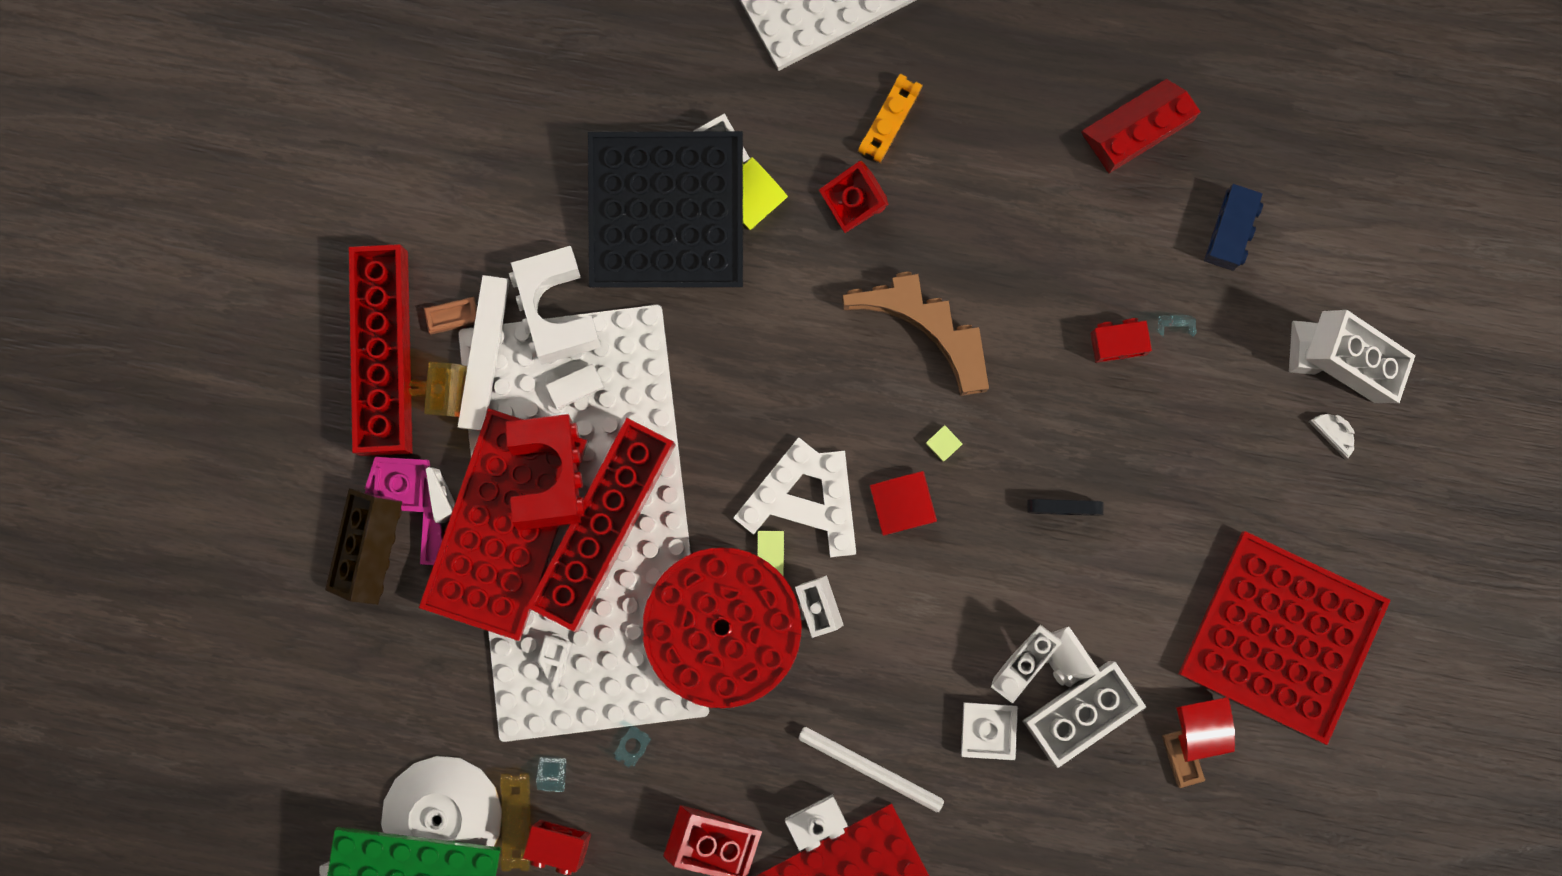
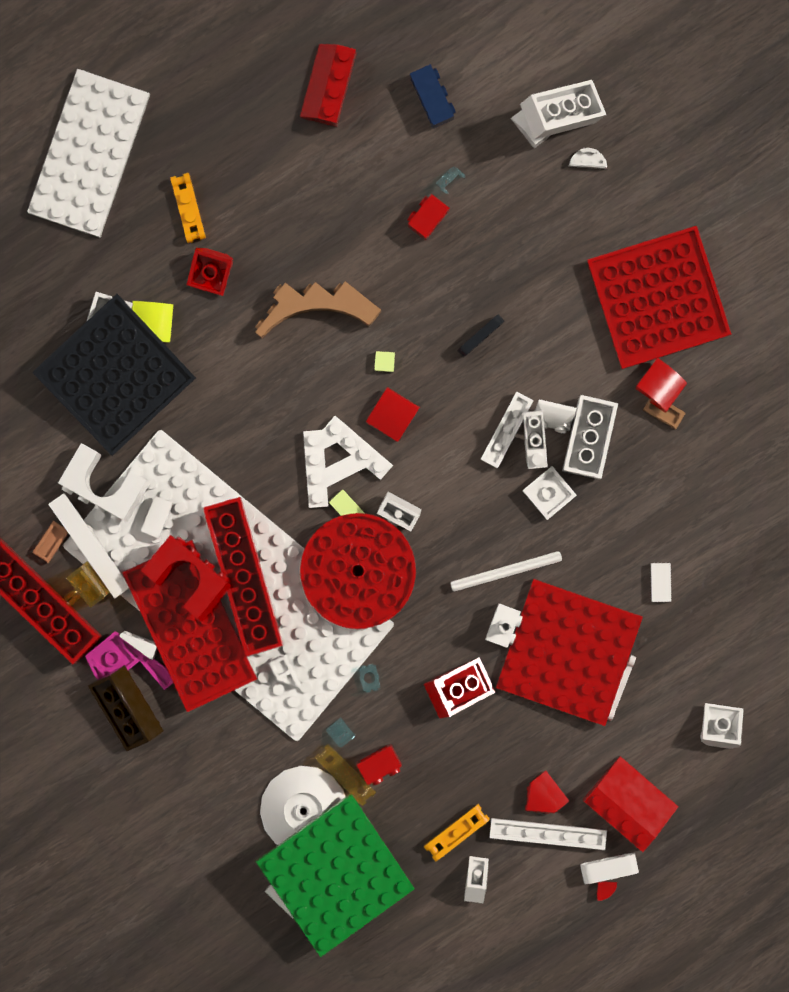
camera: 45 degrees left, 5 degrees up
(1004, 626) = (506, 430): none -> white plate

